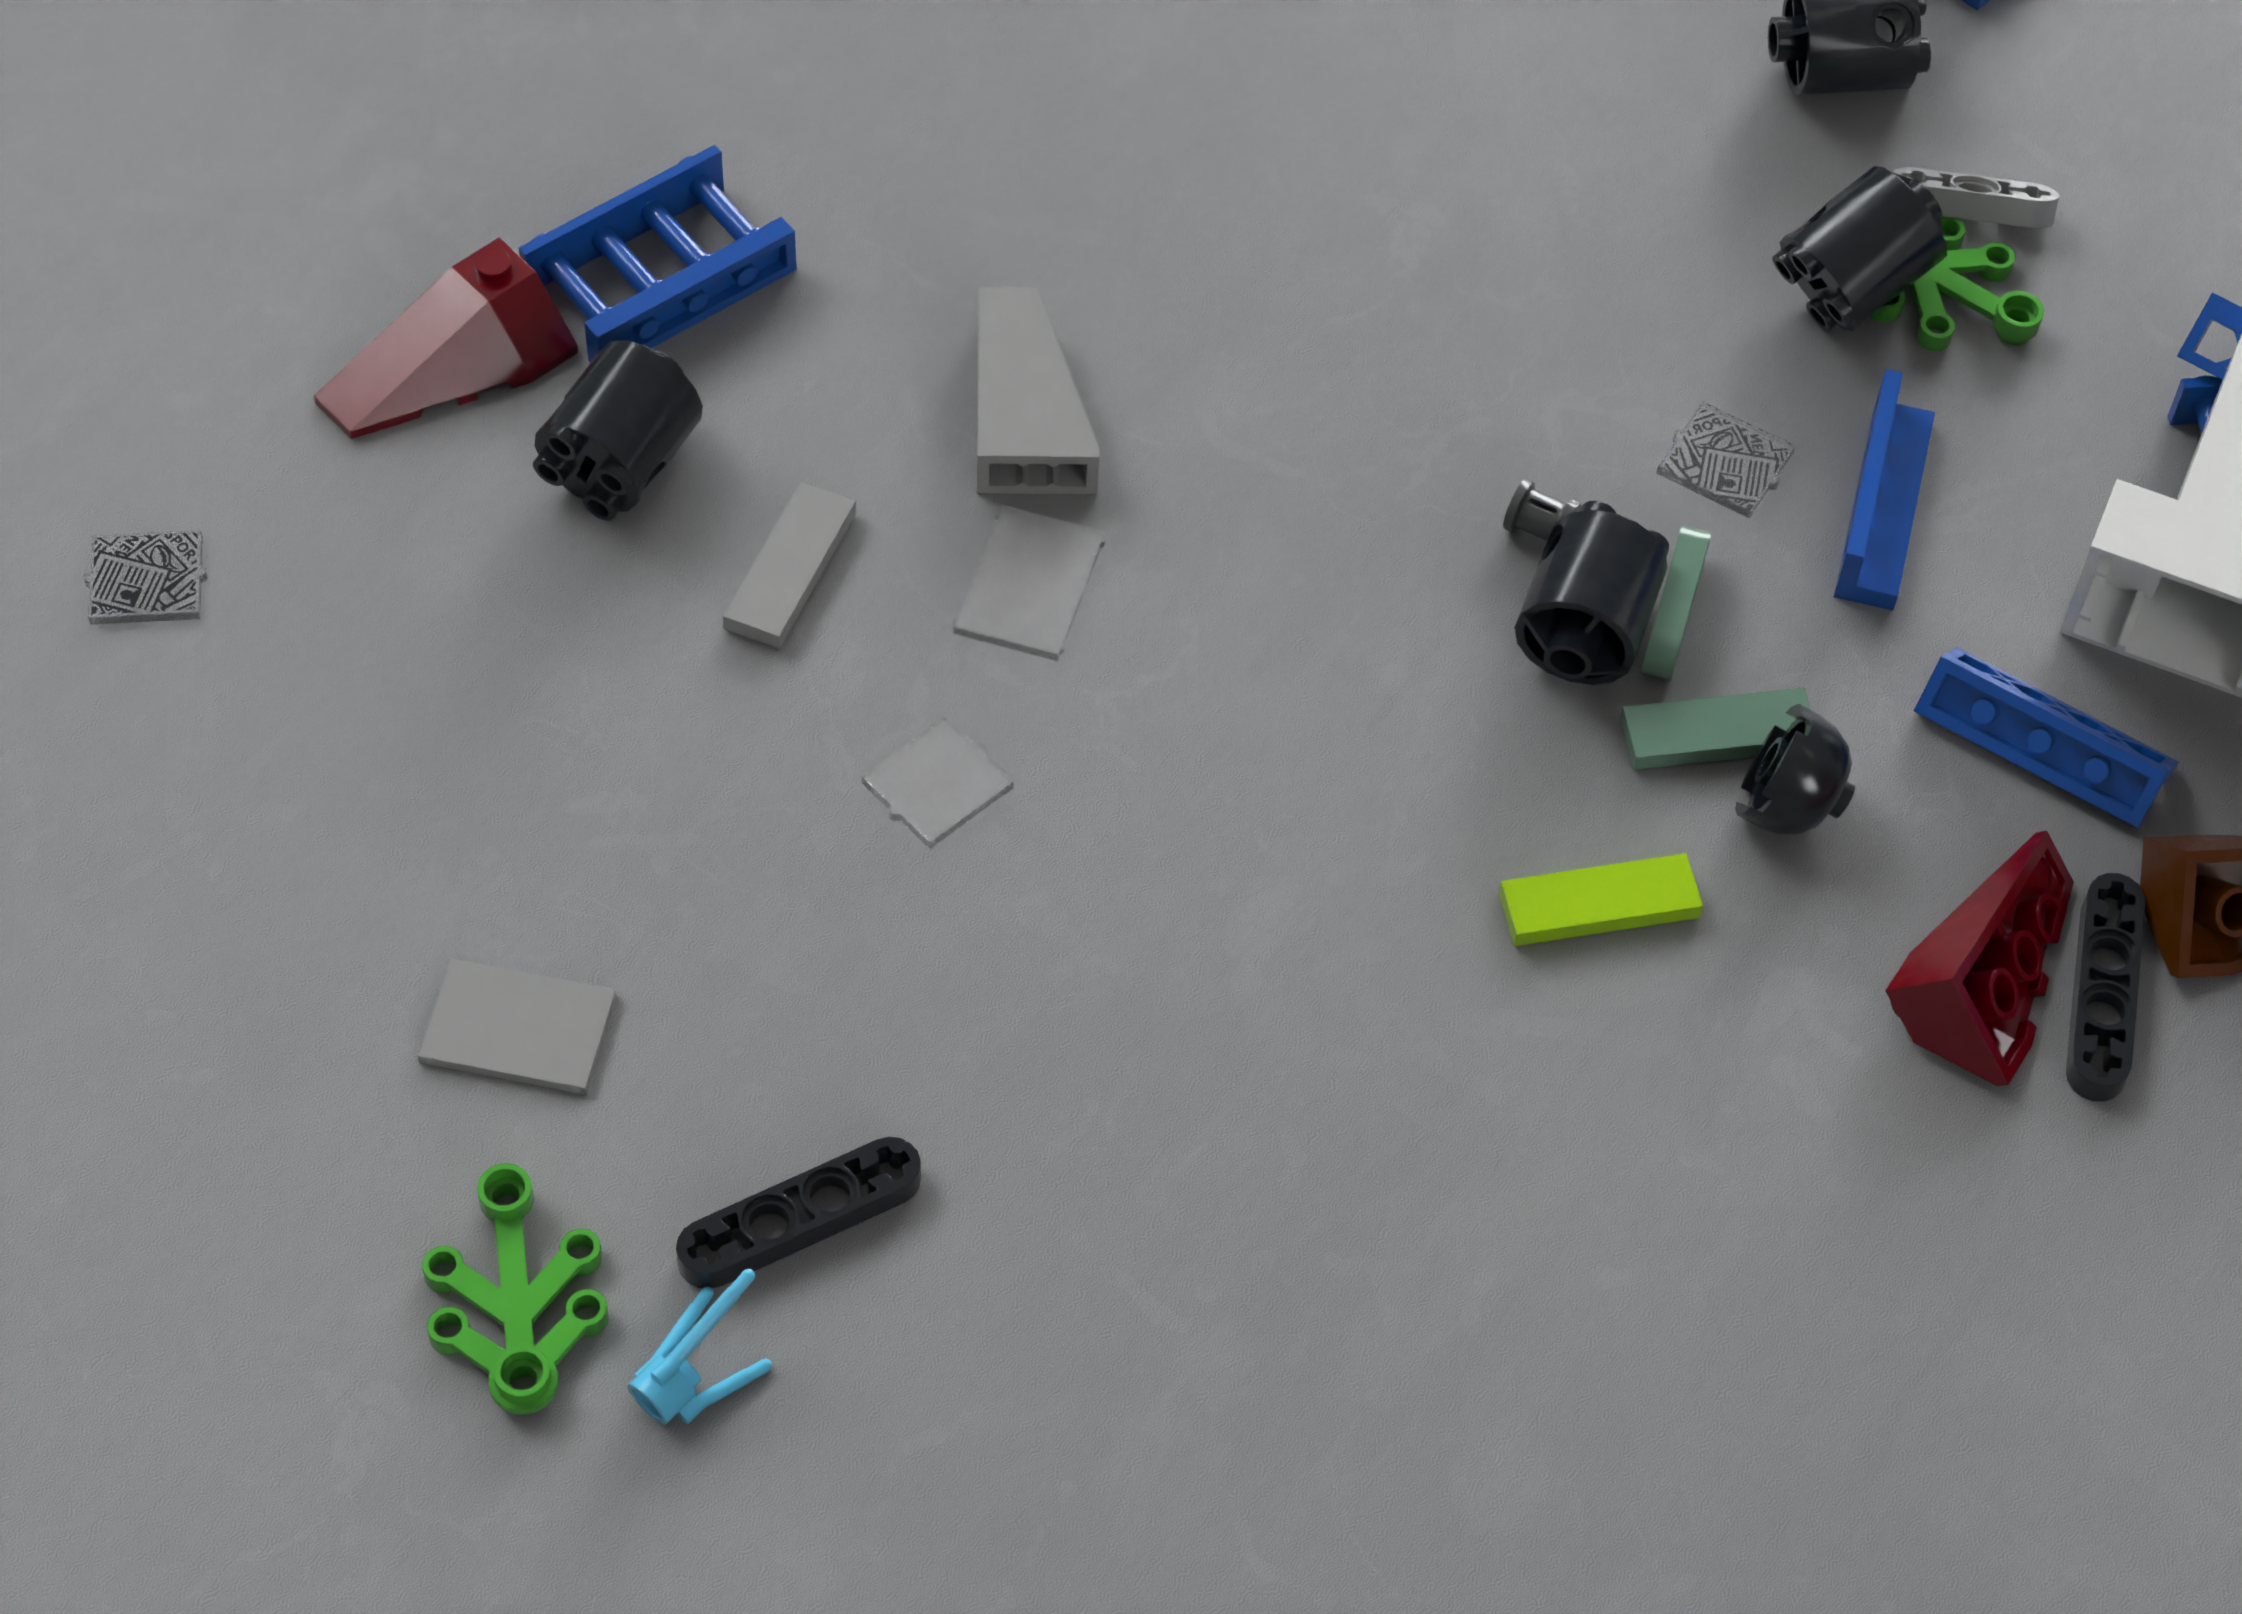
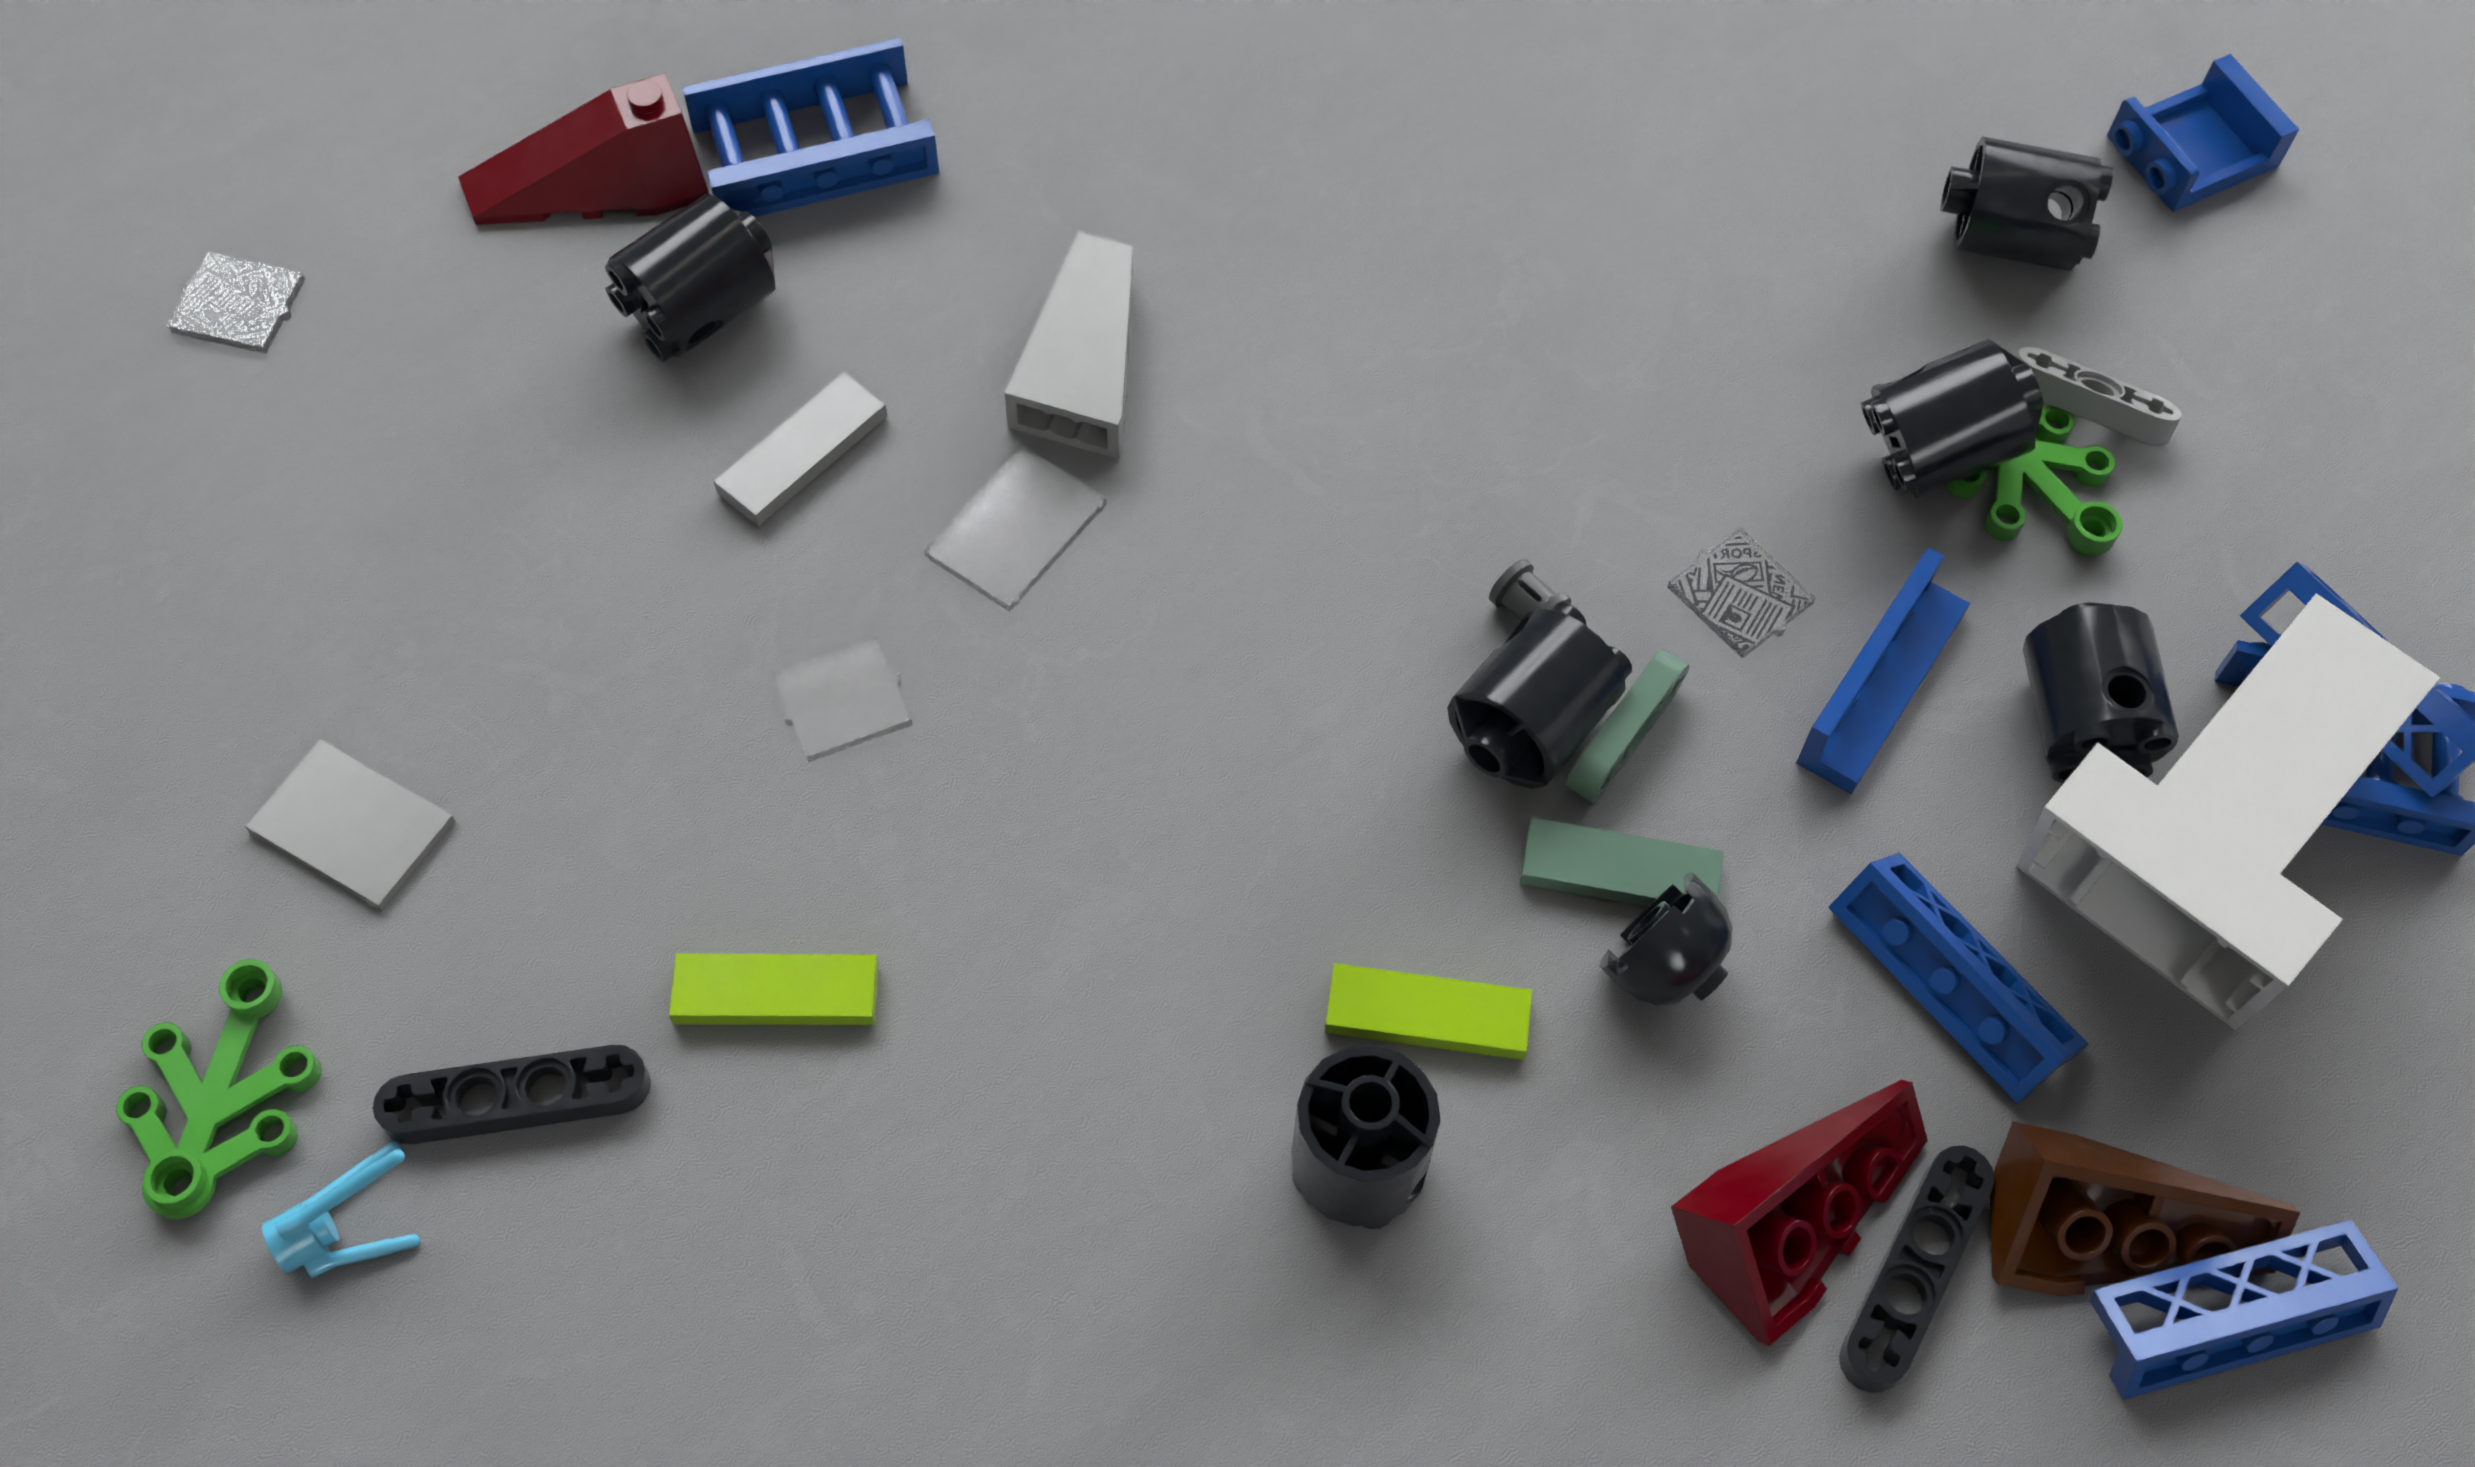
camera: 20 degrees right, 5 degrees up
(999, 1052) = (774, 989): none -> lime tile
(1602, 1007) = (1364, 1135): none -> black cylinder
(2072, 448) = (2102, 683): none -> black cylinder

